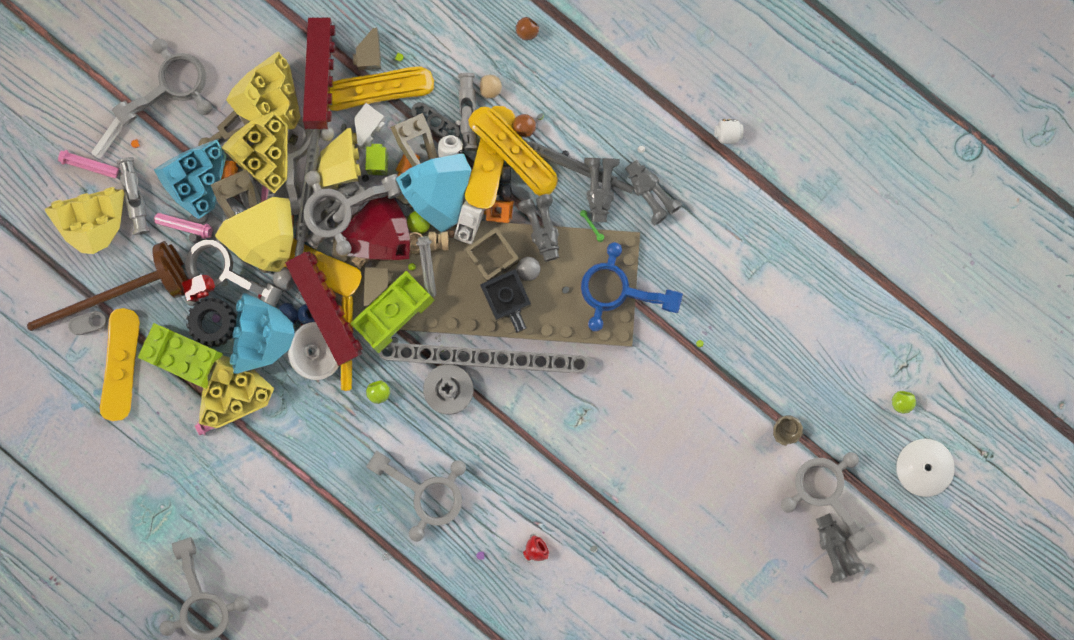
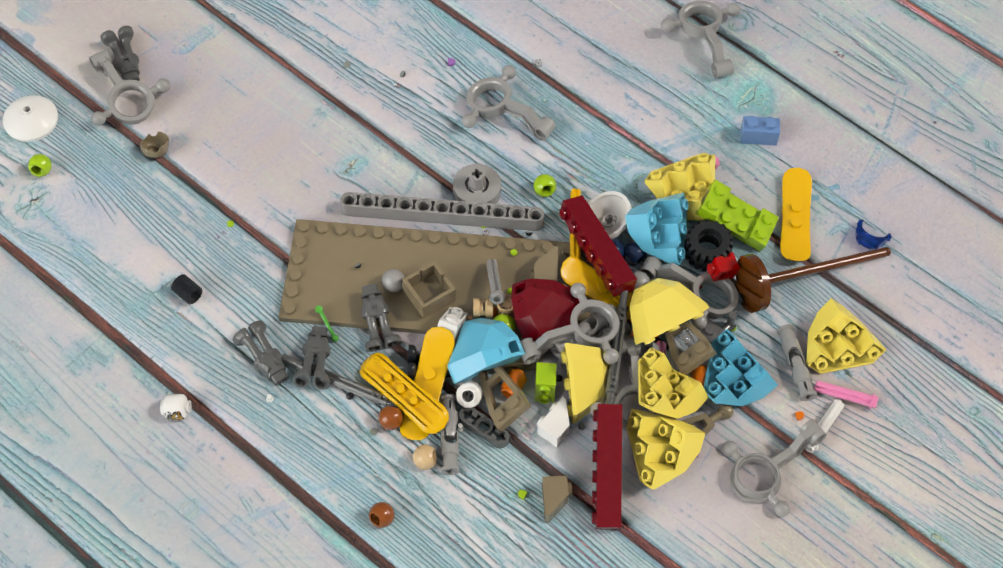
camera: 175 degrees right, 25 degrees down
(53, 339) = (867, 240): none -> clear blue helmet
(83, 324) = (833, 250): light grey piece -> none
(149, 467) = (760, 130): none -> medium blue brick
(204, 231) = (743, 332): bright pink axle -> none
(381, 87) = (540, 461): yellow piece -> none
(392, 311) = (528, 243): lime piece -> none
(506, 214) = (416, 335): orange brick -> none
(507, 298) = (414, 249): black brick -> none
(536, 549) = (399, 61): red brick -> none
(671, 299) = (254, 241): blue piece -> none
(733, 259) = (186, 289): none -> black piece

